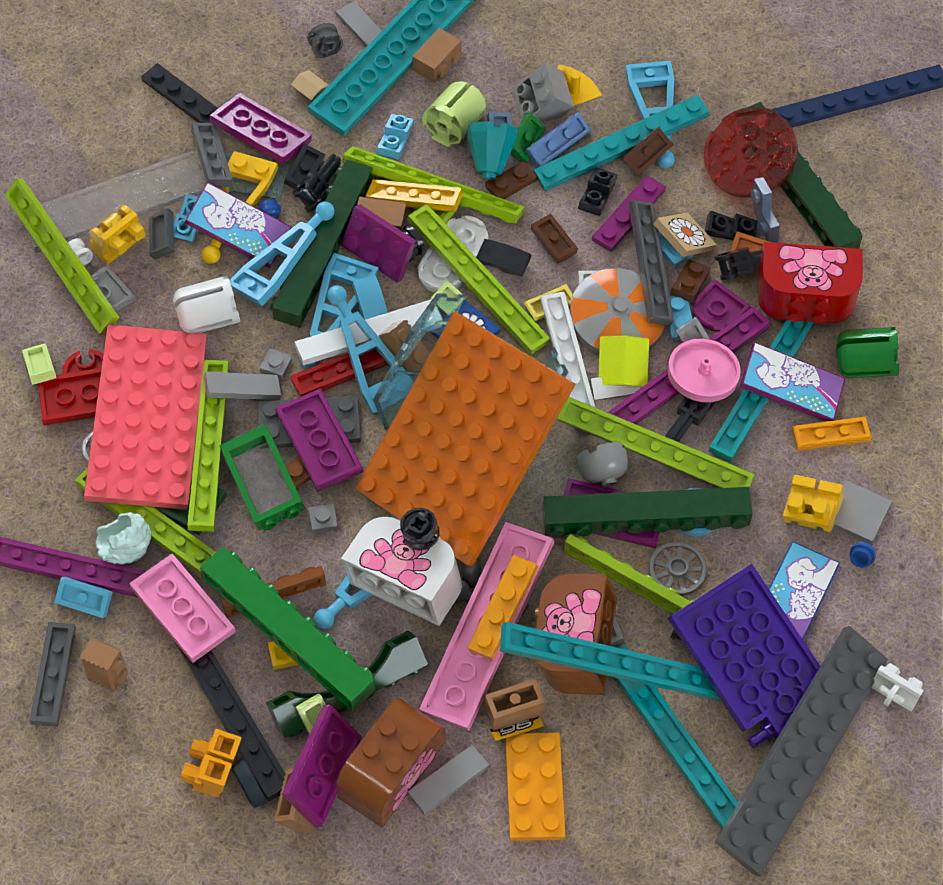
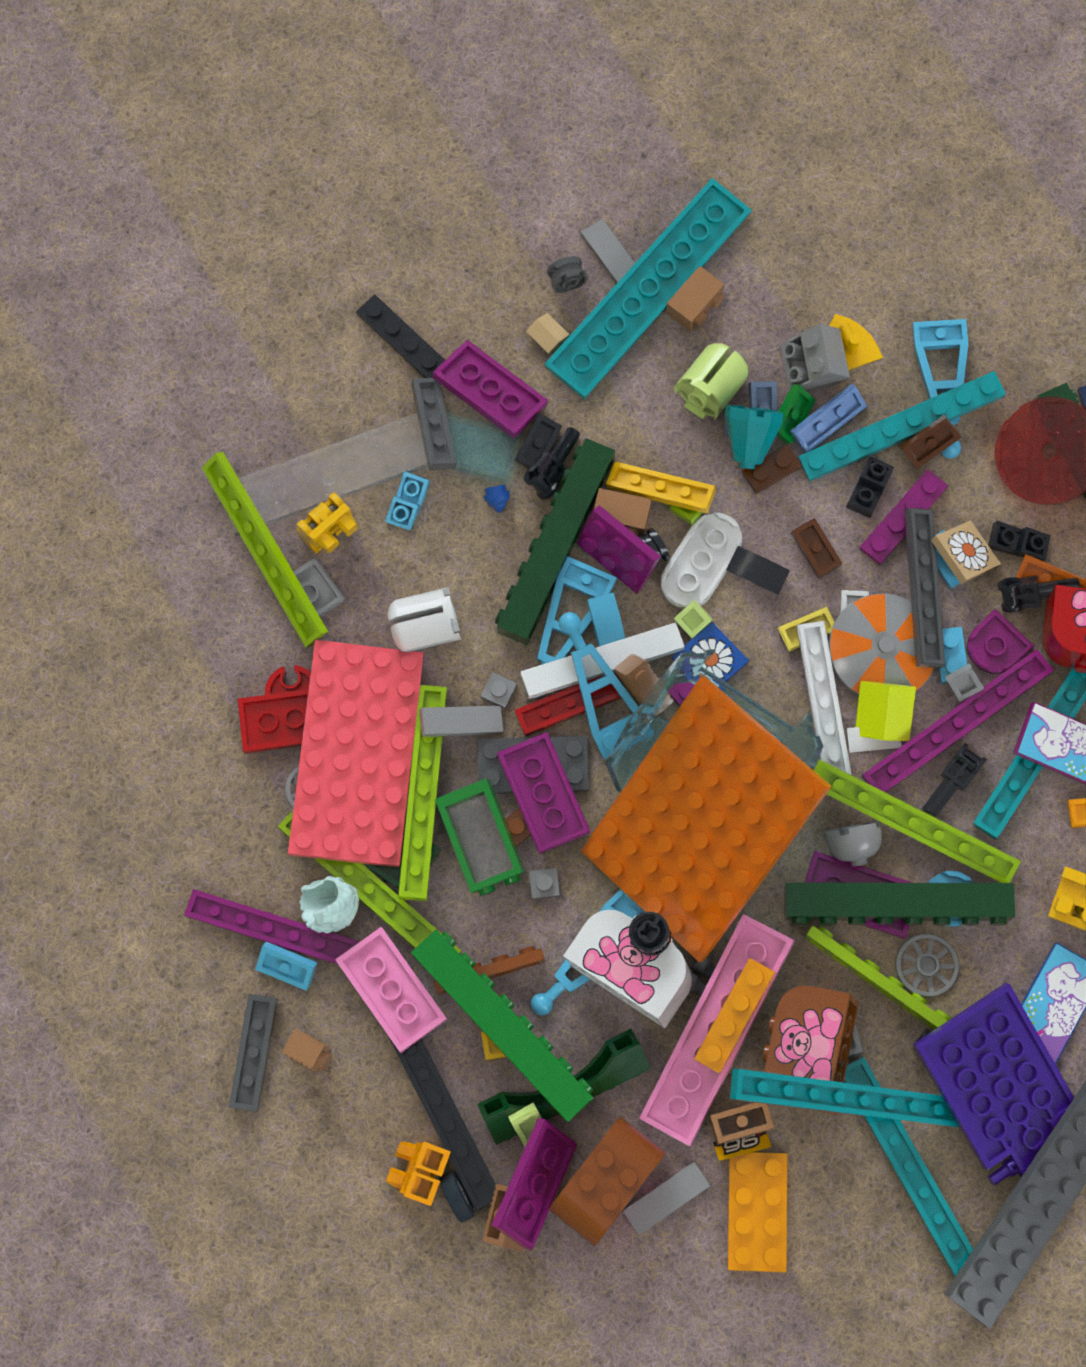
camera: 10 degrees right, 15 degrees up
(39, 364) = (239, 680): yellowish green tile -> none
(84, 254) = (284, 540): white wheel -> none
(161, 234) = (375, 520): dark grey tile -> none
(235, 222) = (462, 517): tile -> none
(248, 169) = (476, 443): yellow plate -> none
(258, 288) = (479, 597): medium azure plate -> none
(395, 136) = (642, 403): medium azure slope -> none
(473, 198) = (662, 460): lime plate -> none
(478, 279) = (728, 599): lime plate -> none
(690, 280) = (967, 610): reddish brown plate -> none
(704, 370) = (974, 730): bright pink piece -> none
(761, 198) = (1057, 519): sand blue plate -> none

